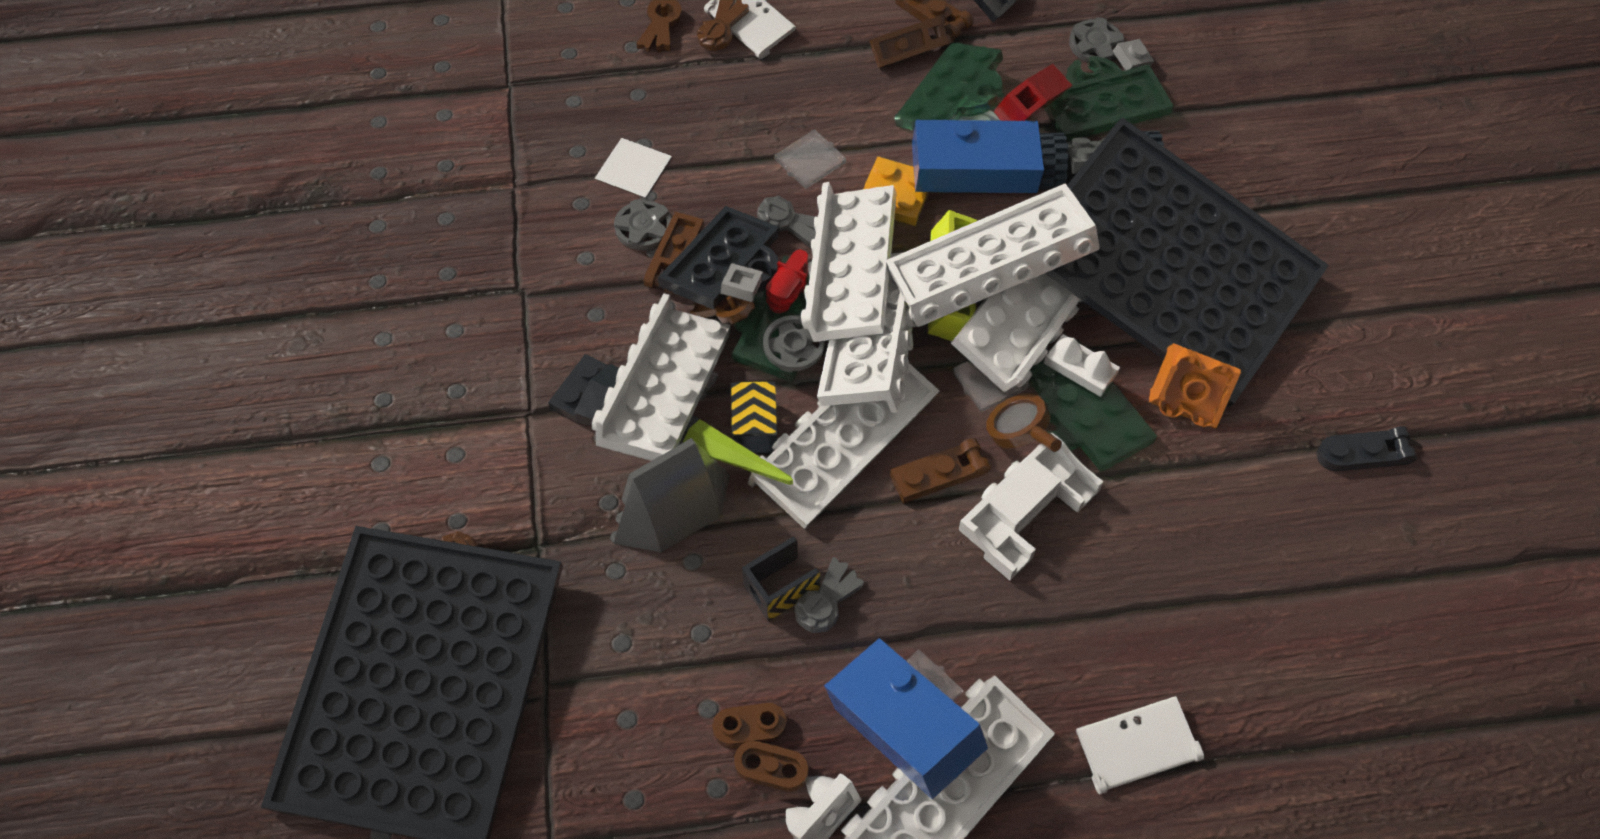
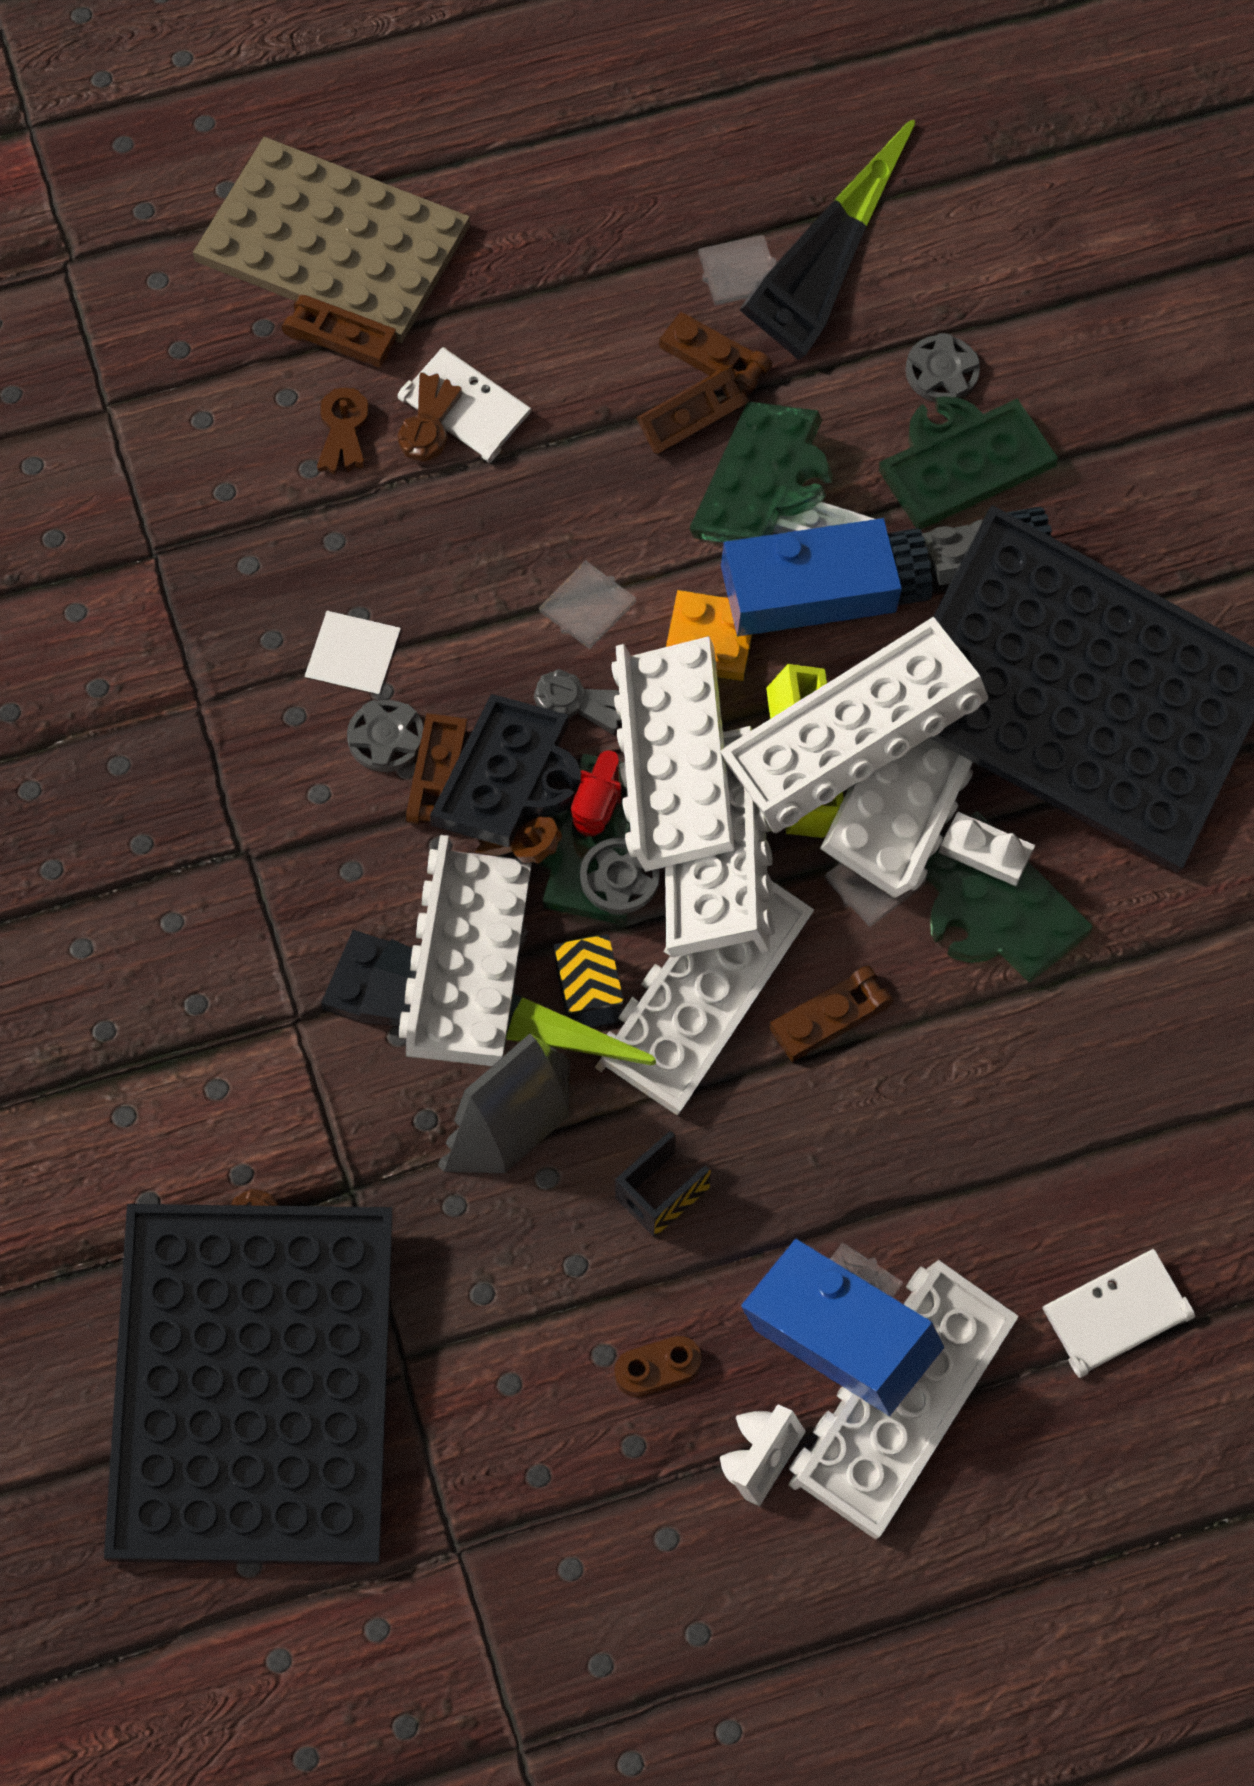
camera: 10 degrees left, 5 degrees up
(741, 282) = (541, 808): light grey plate -> none
(772, 764) = (694, 1406): reddish brown plate -> none
(818, 609) = (714, 1213): dark grey piece -> none
(1019, 498) = (935, 1034): white bracket -> none
(1020, 422) = (922, 936): reddish brown piece -> none
(1033, 95) = (872, 476): red slope -> none
(1132, 54) = (994, 386): light grey plate -> none
(1193, 386) = (1128, 855): orange slope -> none

